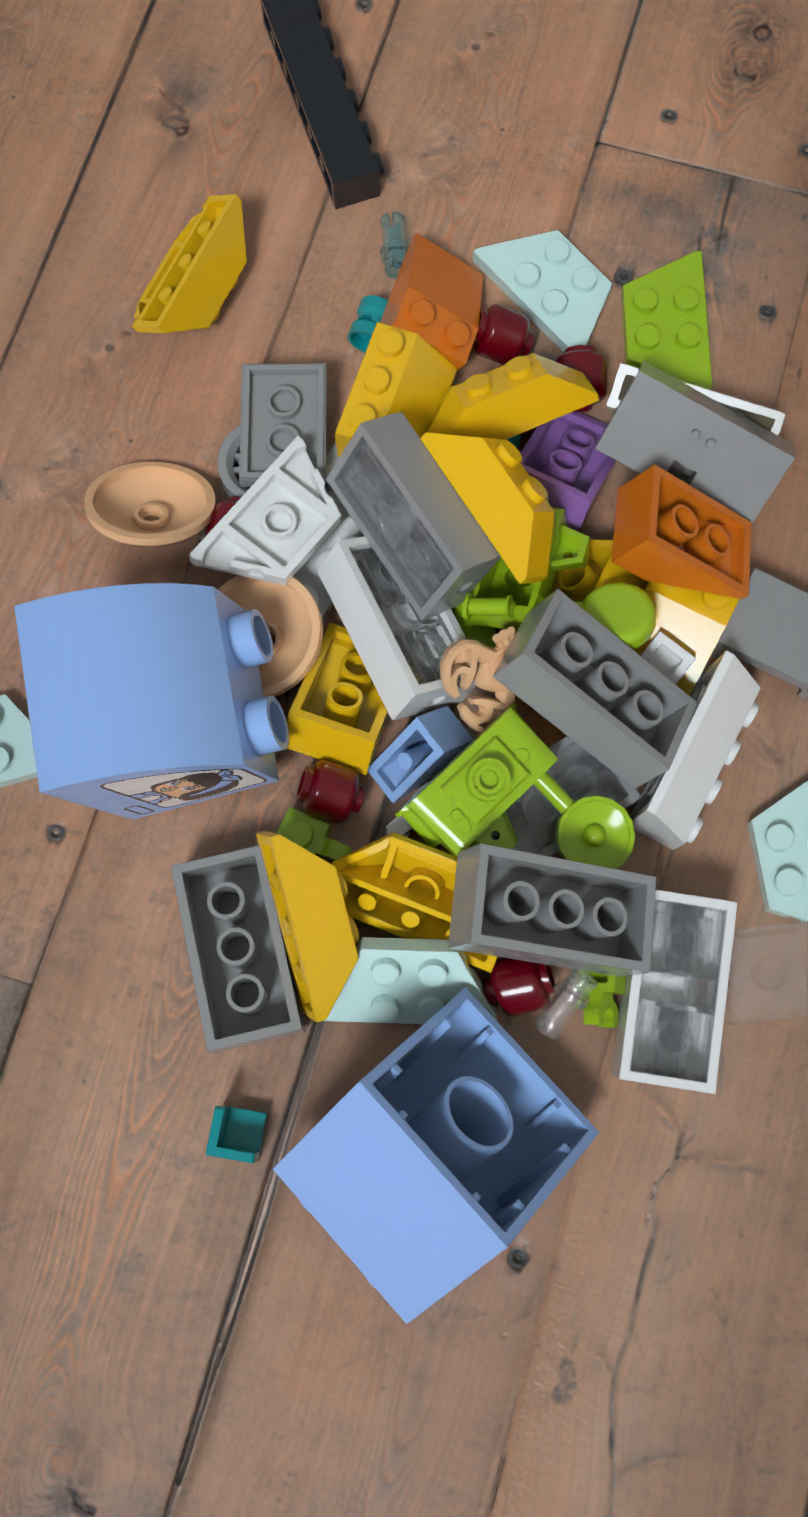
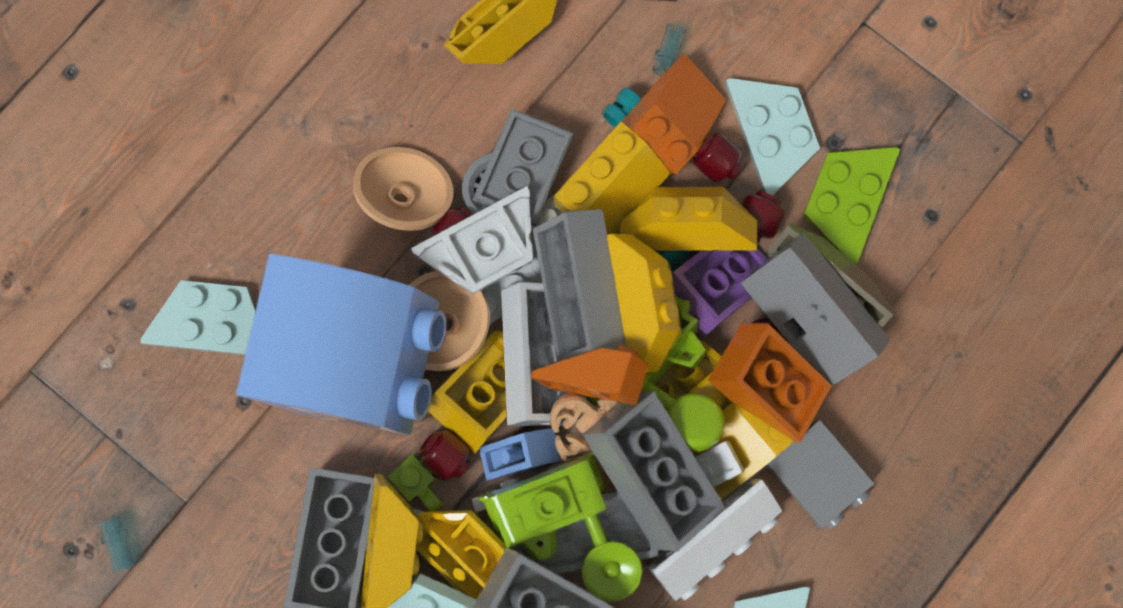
camera: 25 degrees right, 5 degrees up
(478, 598) = (597, 374): none -> orange slope

